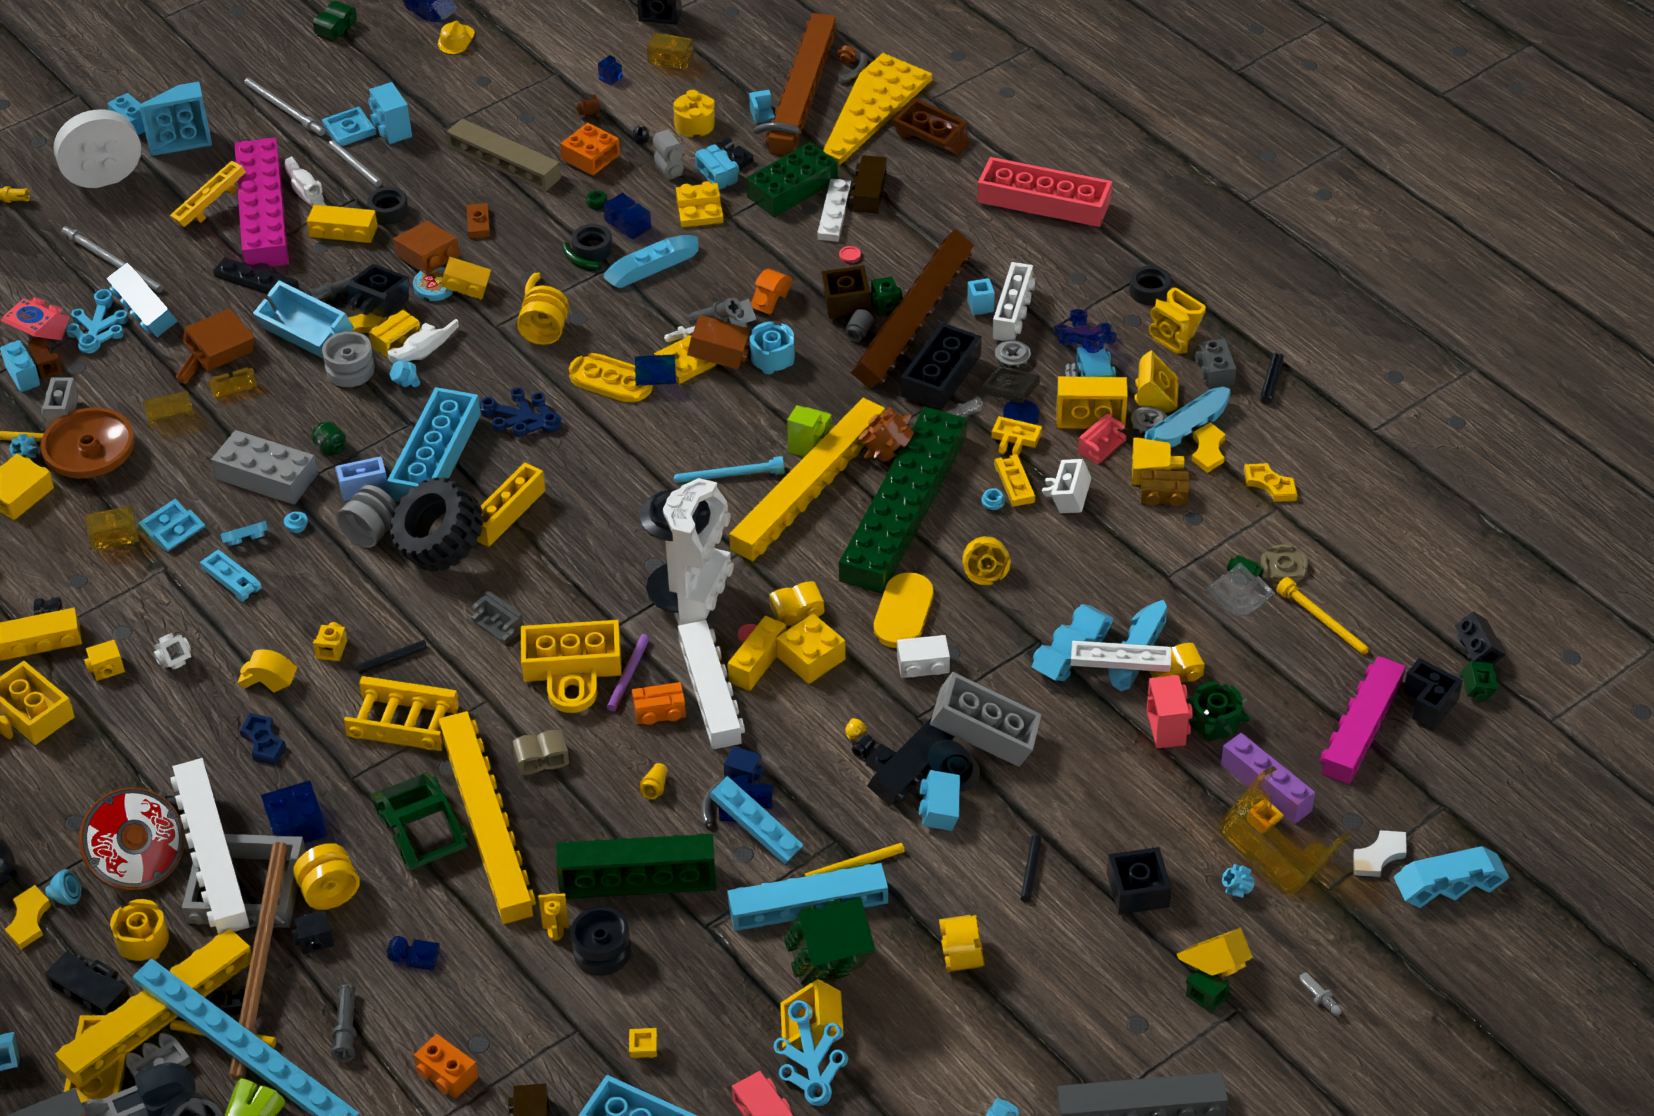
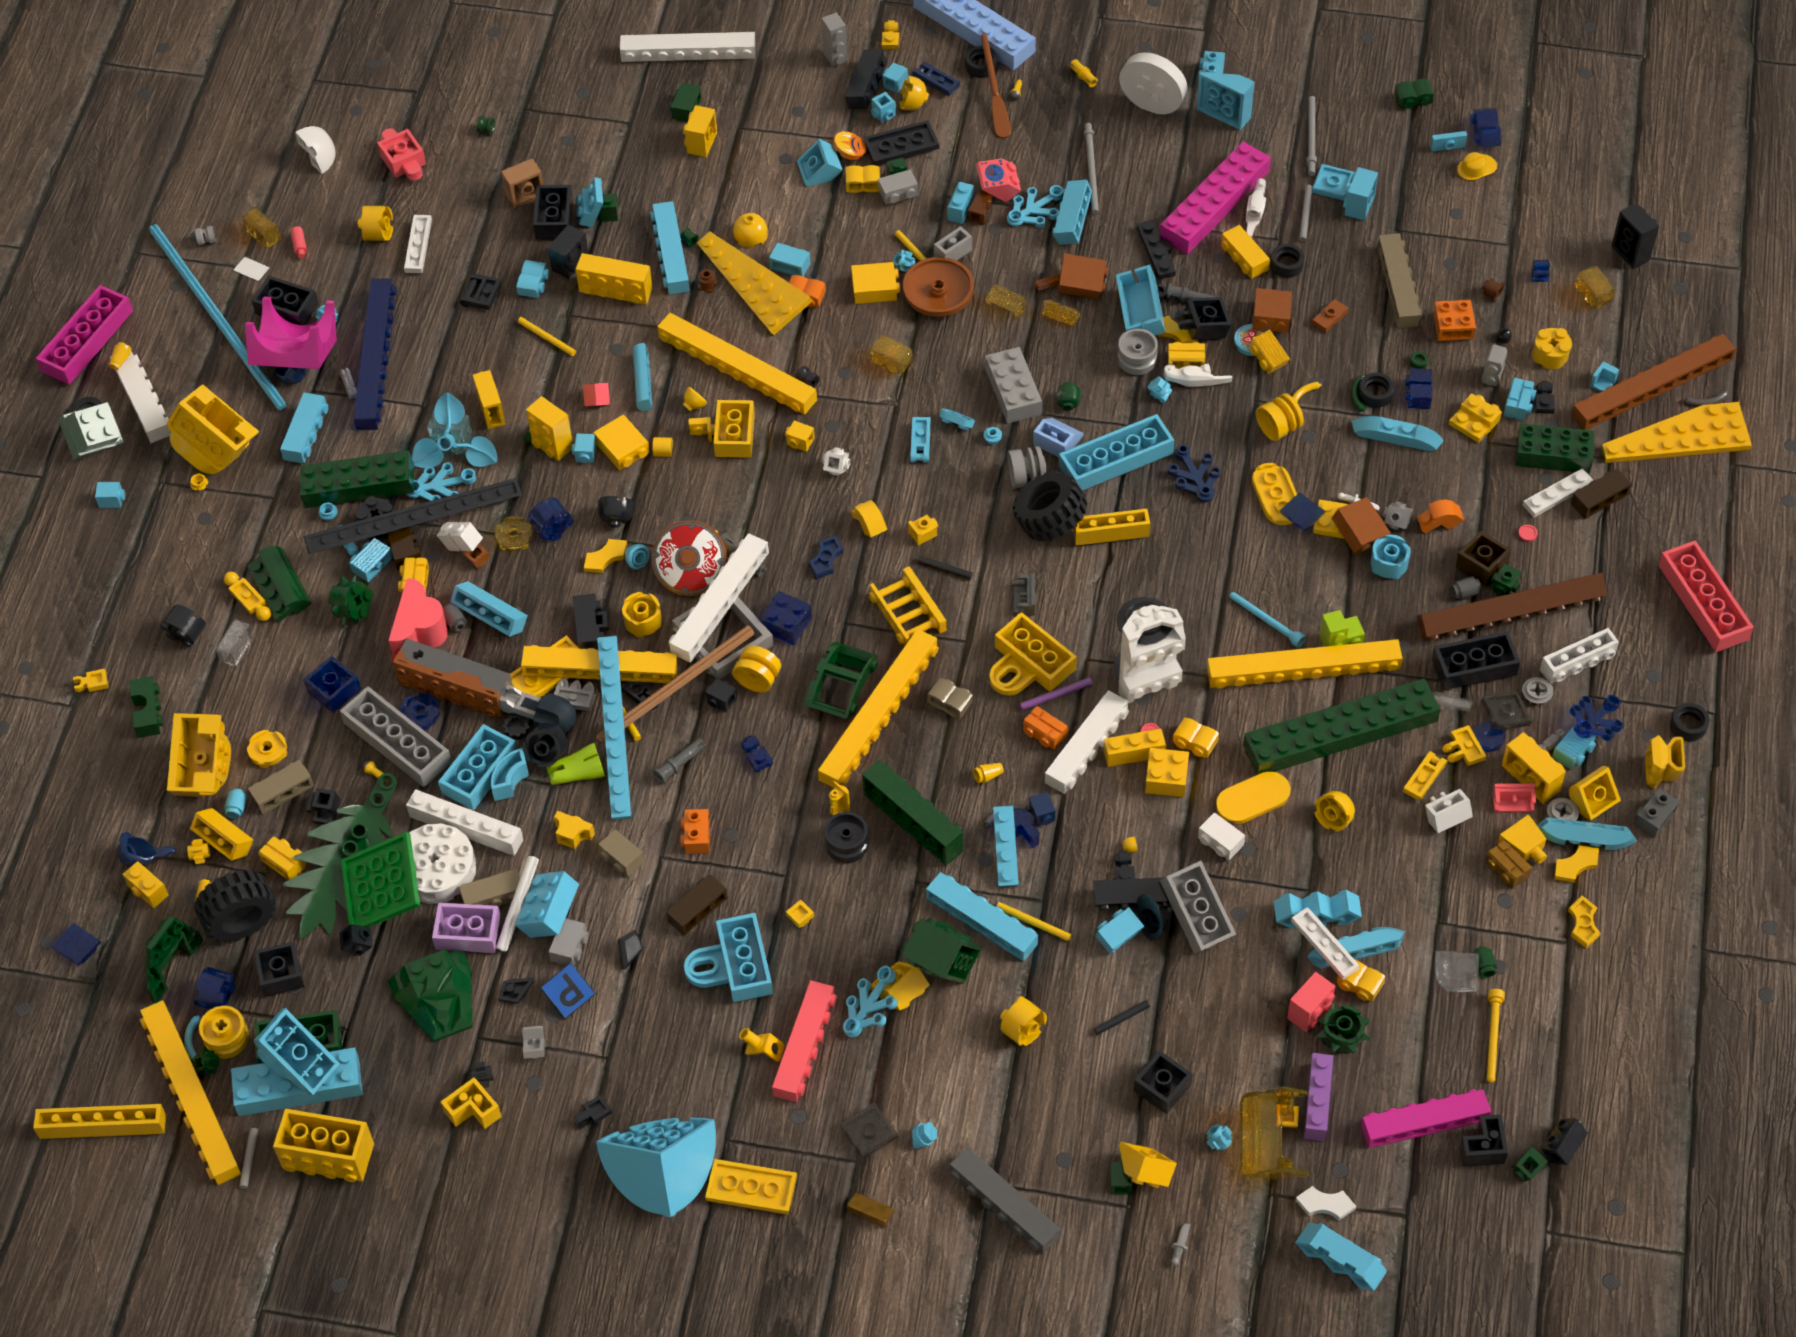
camera: 50 degrees right, 10 degrees up
(170, 525) = (926, 379): medium azure slope -> none
(220, 183) = (1187, 166): yellow hinge -> none
(410, 33) = (1448, 141): none -> medium azure plate
(720, 310) = (1381, 504): dark grey pin -> none
(770, 126) = (1587, 403): dark grey piece -> none
(847, 54) = (1712, 384): dark orange plate -> none
(886, 434) = (1376, 676): dark orange brick -> none
(932, 126) = (1696, 486): reddish brown slope -> none
(981, 296) = (1563, 634): medium azure brick -> none
(993, 499) = (1398, 772): medium azure plate -> none
(1272, 378) = (1682, 855): black axle -> none
(1283, 562) = (1518, 981): dark tan tile -> none

